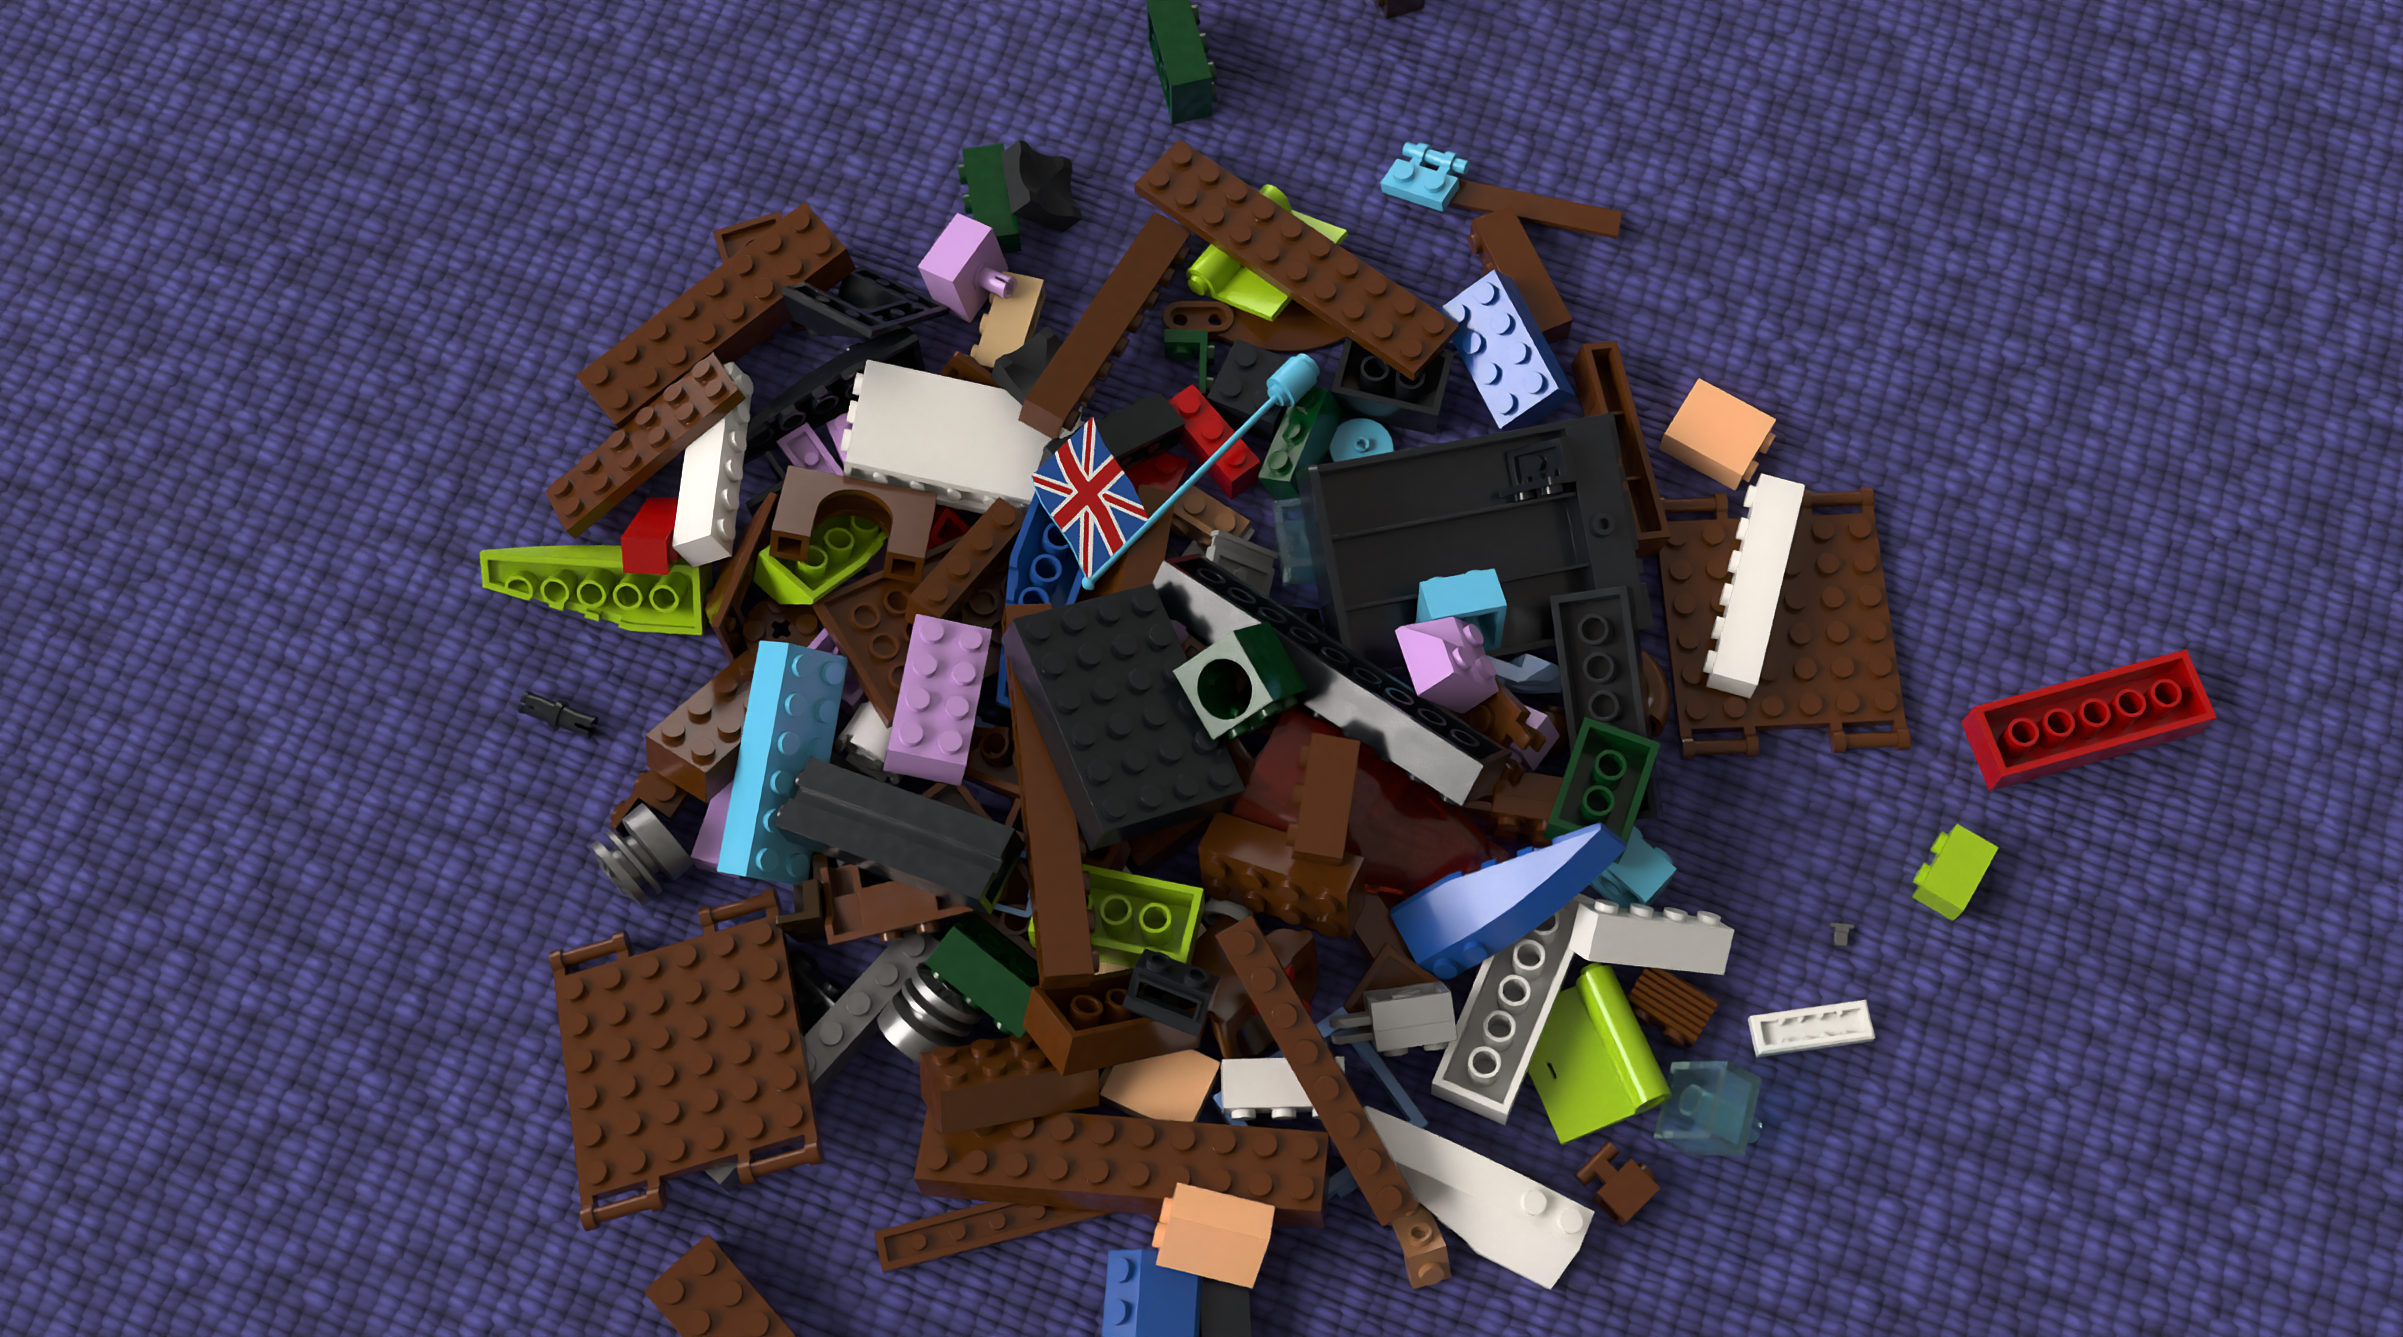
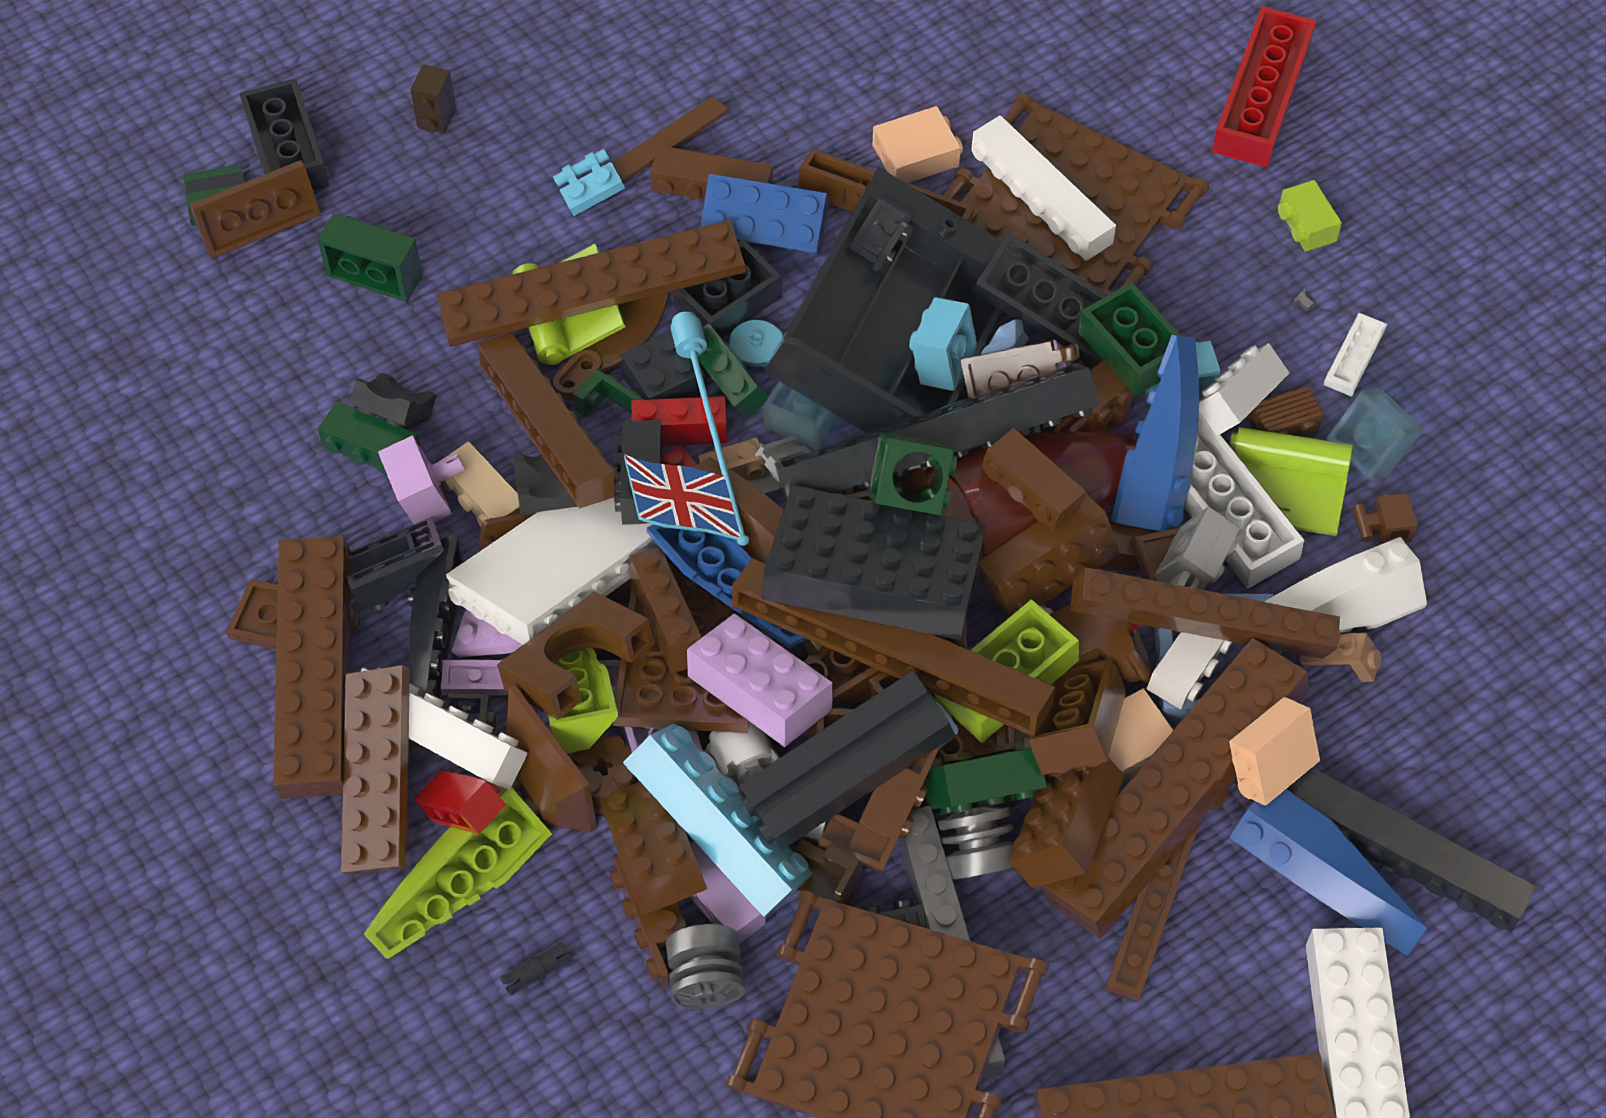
camera: 55 degrees left, 10 degrees down
(1177, 979) = (1081, 651): black window -> none
(1448, 663) = (981, 361): lavender slope -> none

